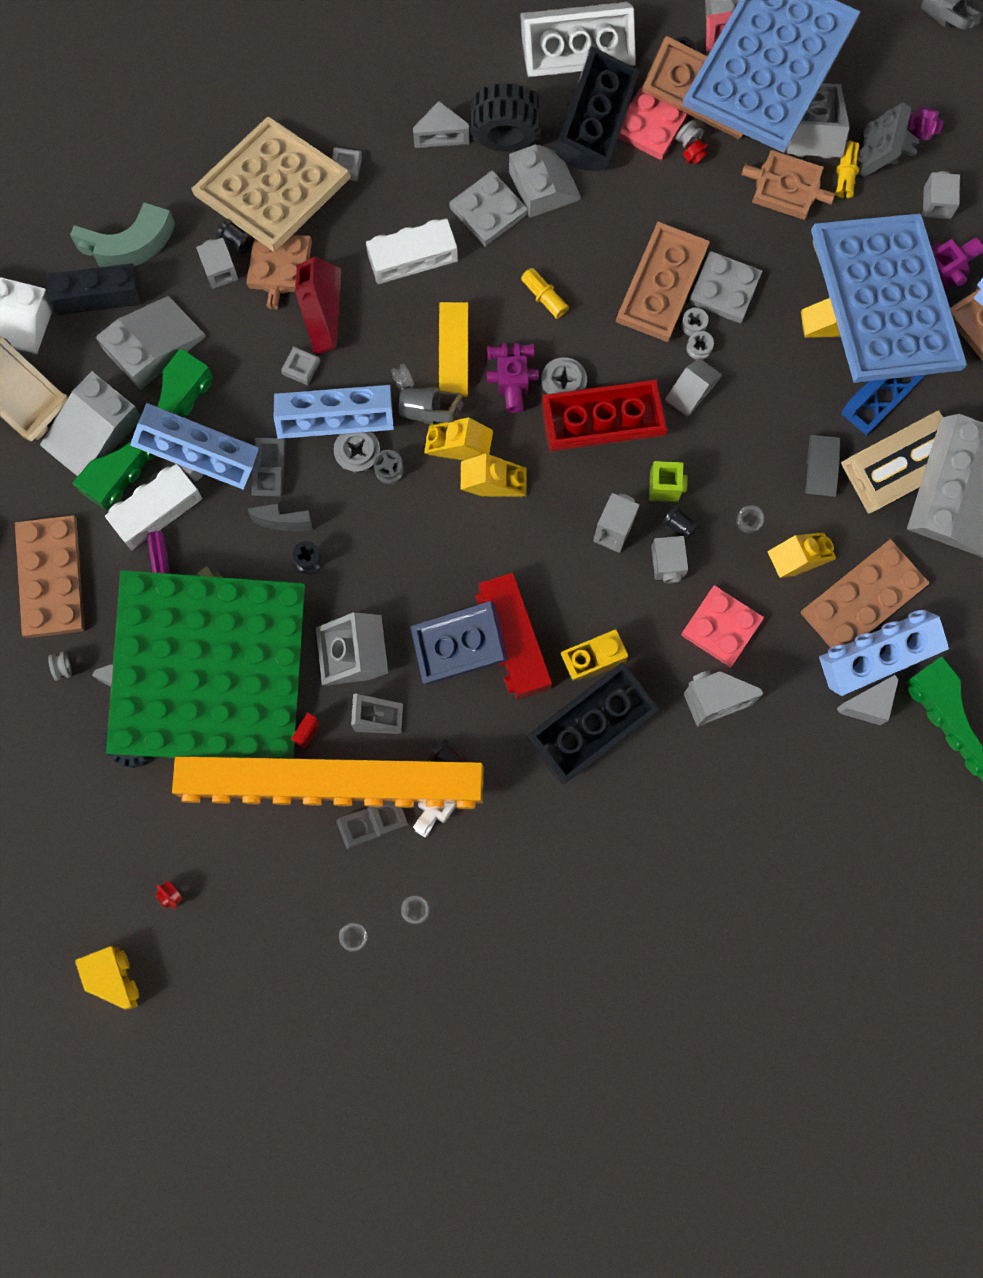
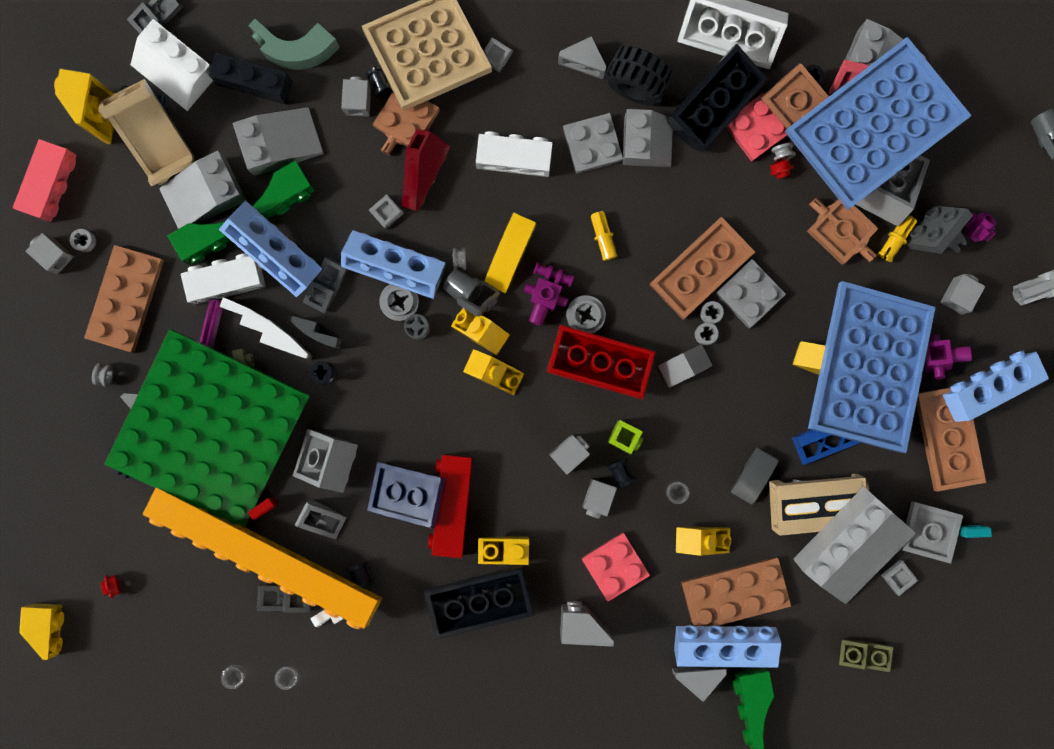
camera: 25 degrees right, 10 degrees up
(235, 540) = (271, 333): none -> white slope

